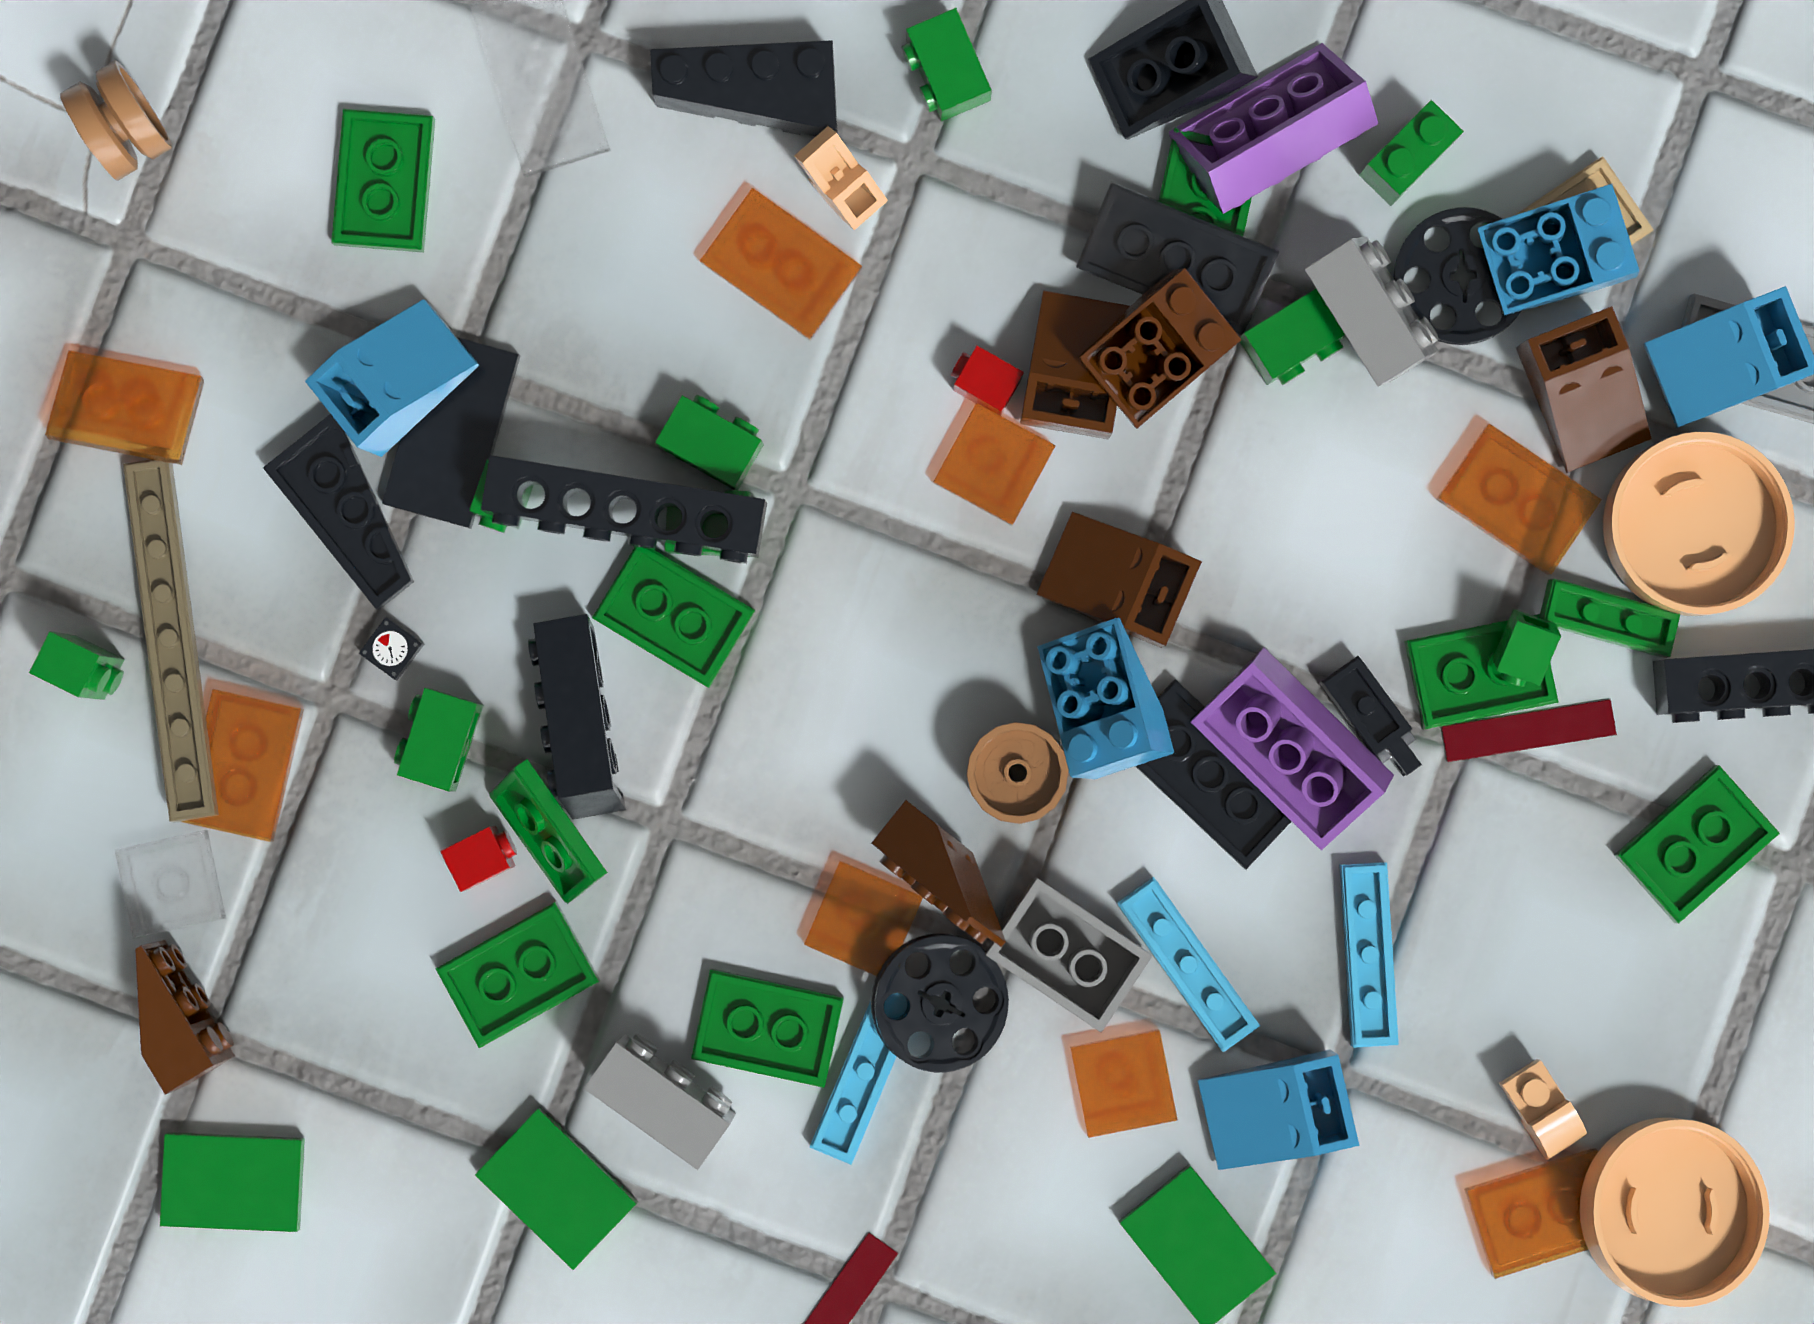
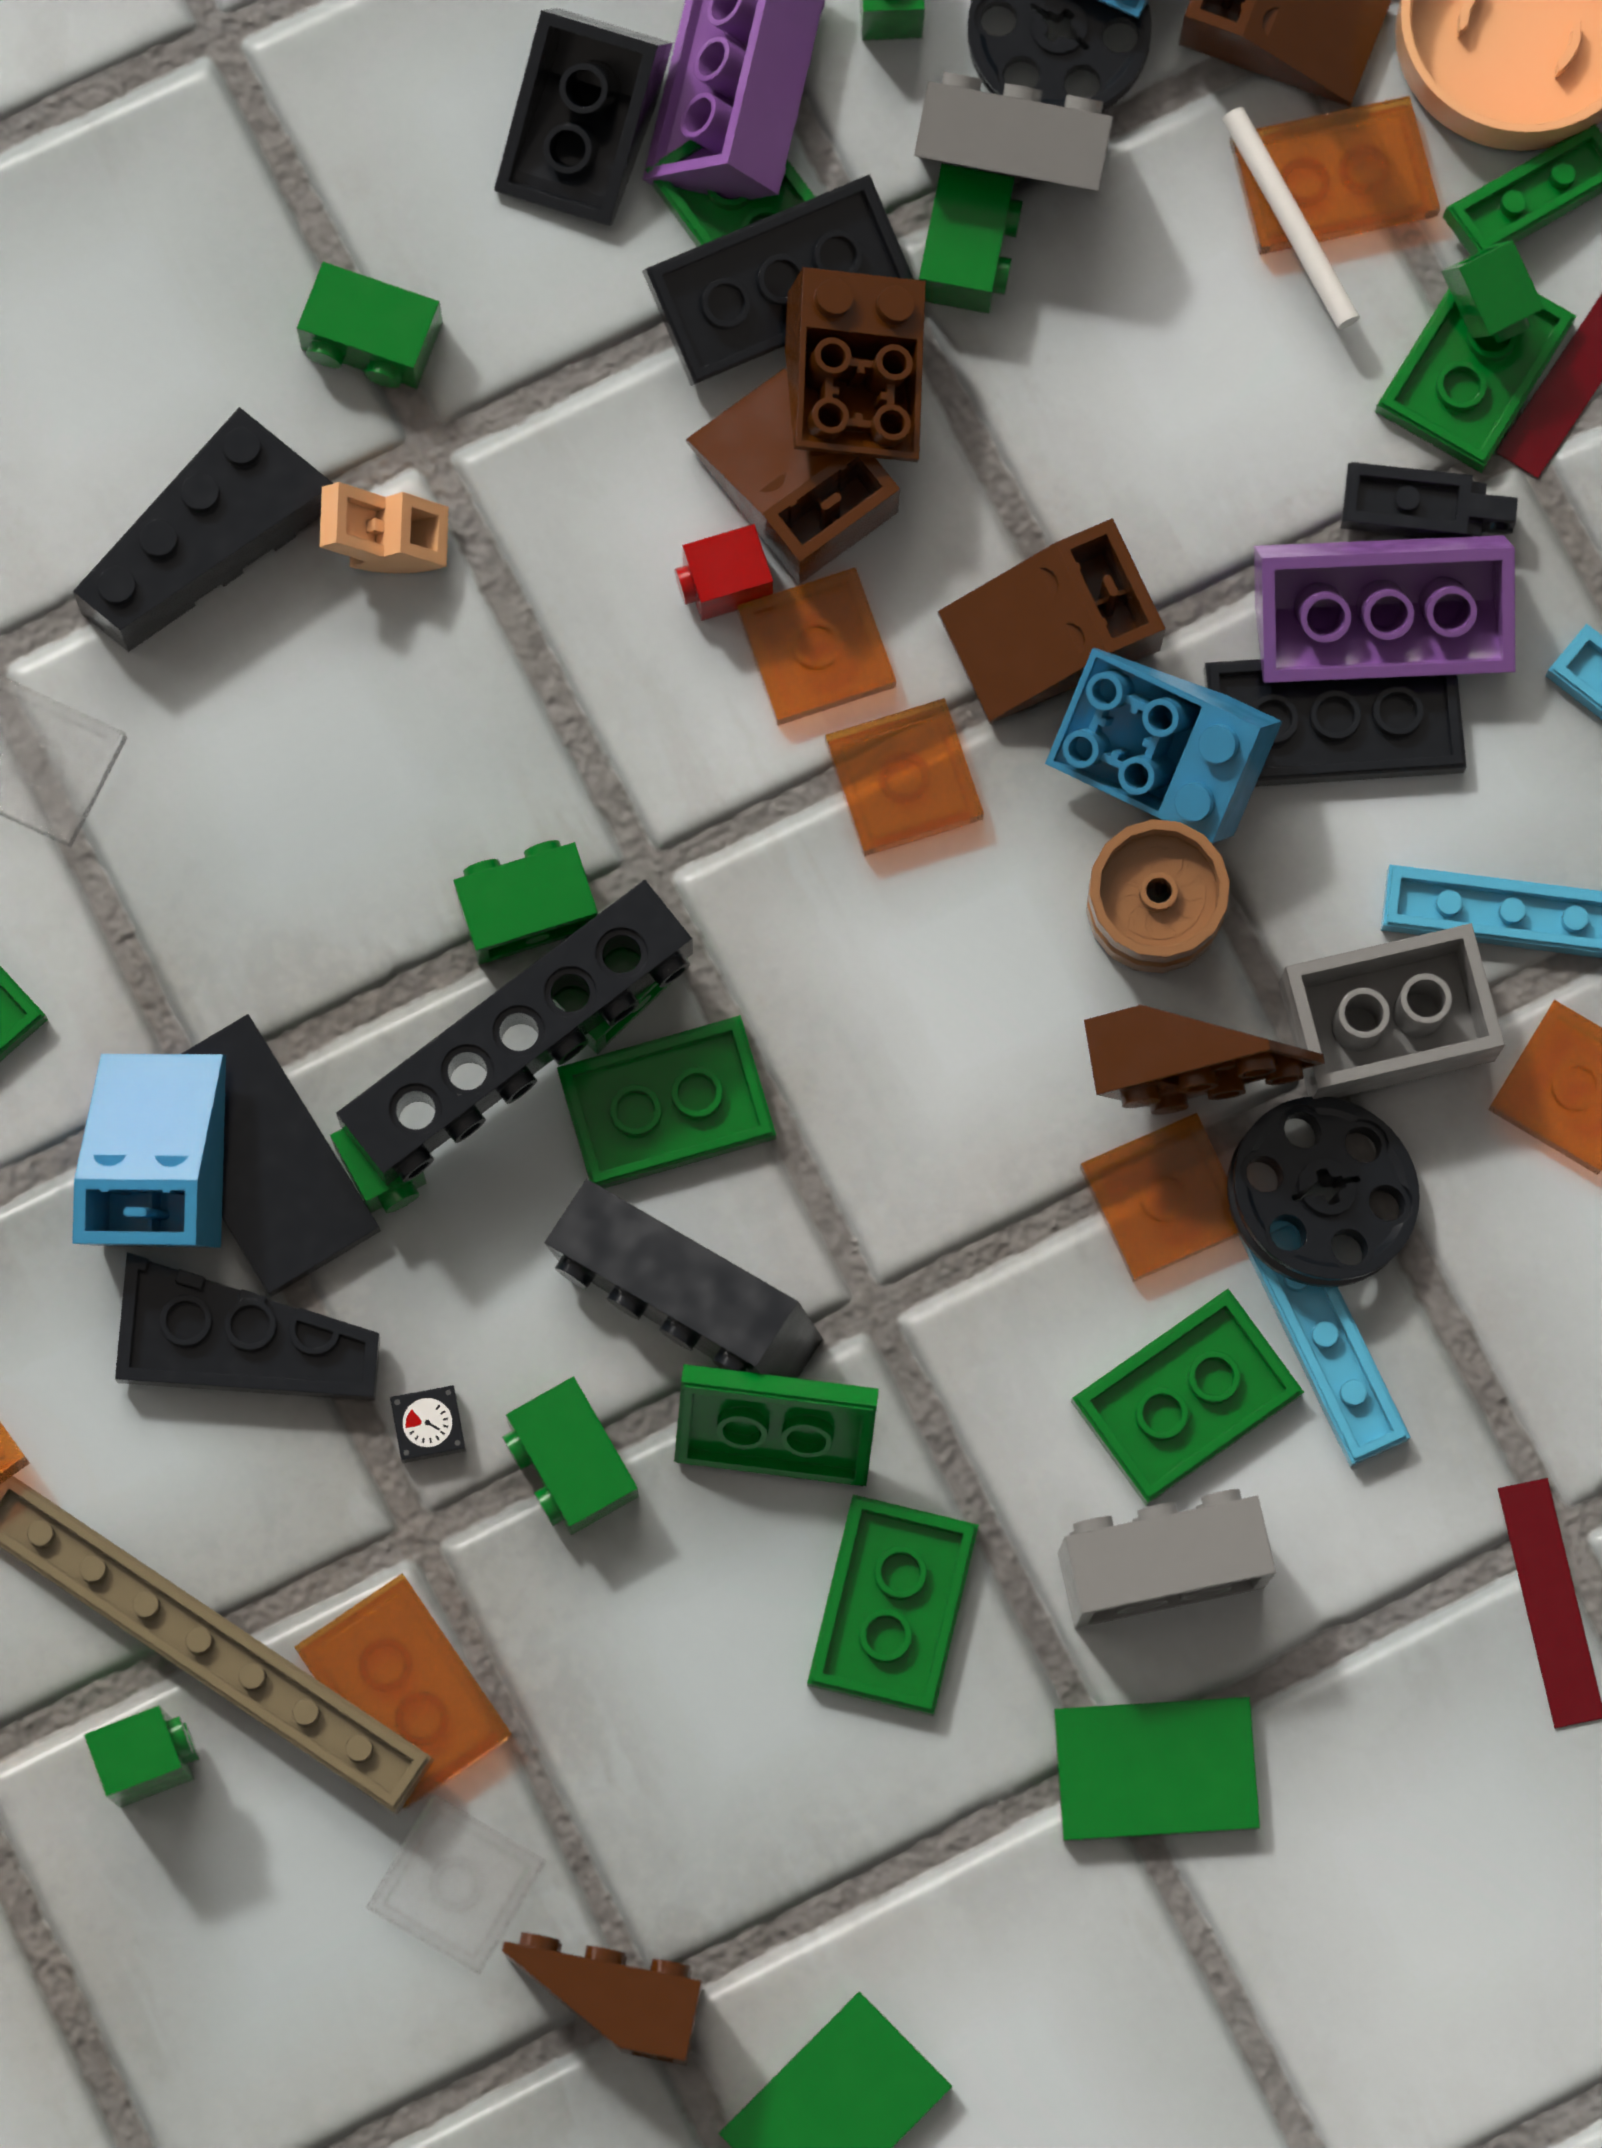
camera: 50 degrees left, 10 degrees down
(479, 857) = (734, 1526): red brick -> none
(781, 264) = (410, 672): clear orange tile -> none
(964, 576) = (904, 777): none -> clear orange tile
(1469, 499) = (1290, 218): none -> white bar

